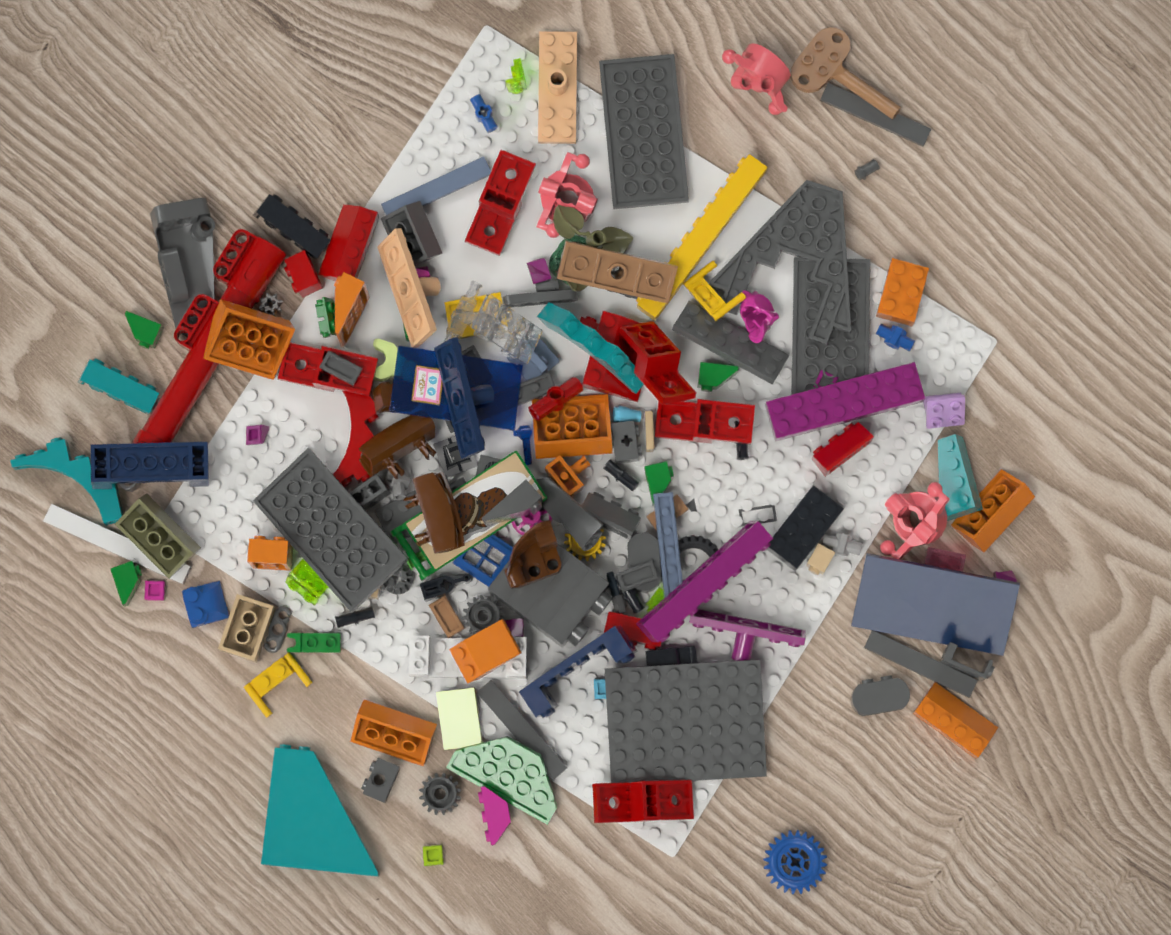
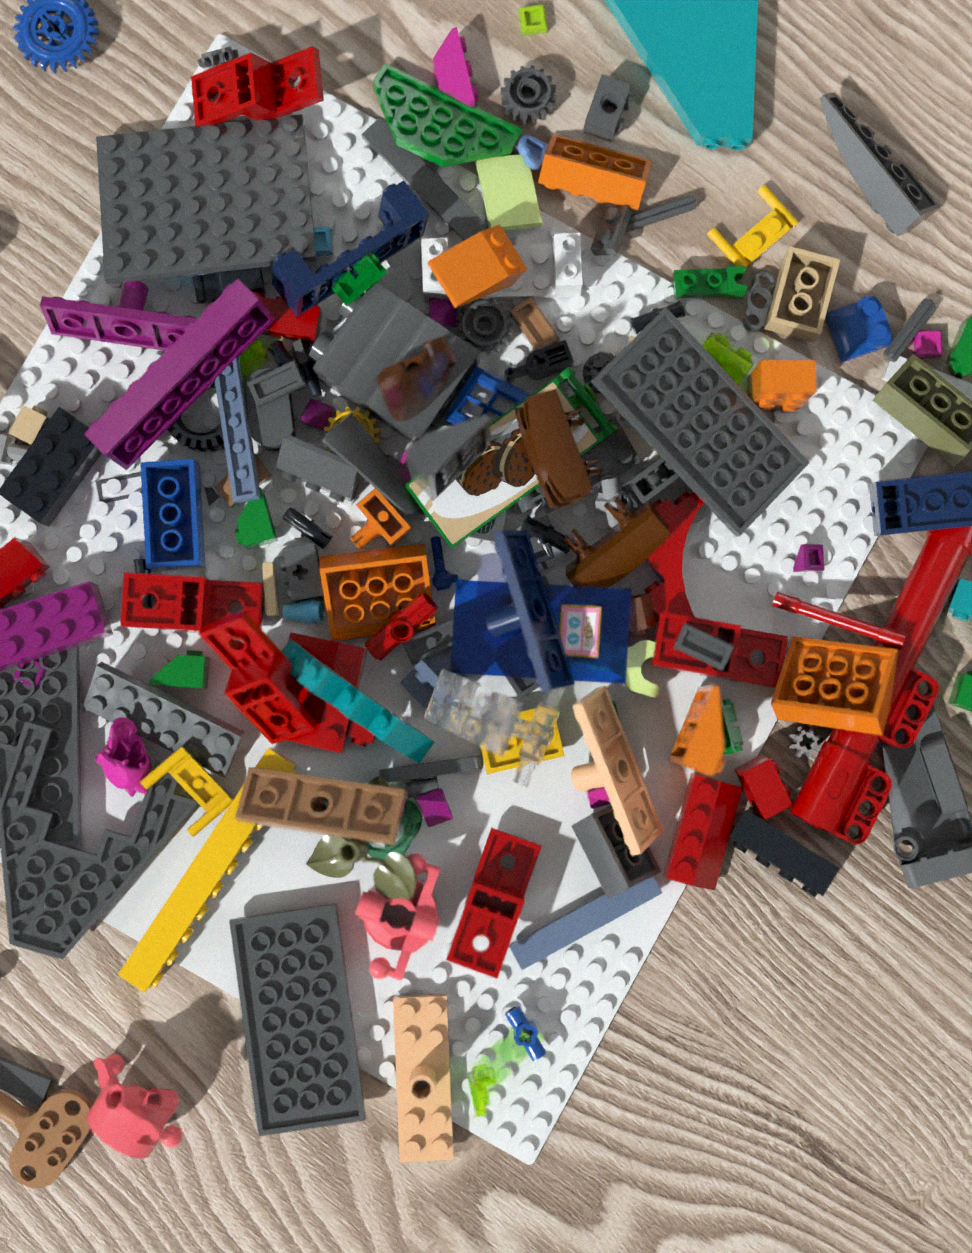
camera: 175 degrees right, 5 degrees up
(168, 599) = (909, 330): none -> dark grey axle
(179, 717) = (888, 186): none -> wedge
(212, 372) = (881, 634): none -> red piece
(347, 699) = (661, 212): none -> dark grey axle
(384, 685) = (611, 230): none -> dark grey plate
(439, 750) = (532, 150): none -> medium blue tile
(448, 462) = (545, 534): none -> black pin
(570, 642) = (369, 273): none -> green hinge
(610, 559) = (317, 414): none -> magenta slope
(671, 829) = (217, 57): none -> dark grey gear
(717, 487) = (172, 515): none -> blue brick

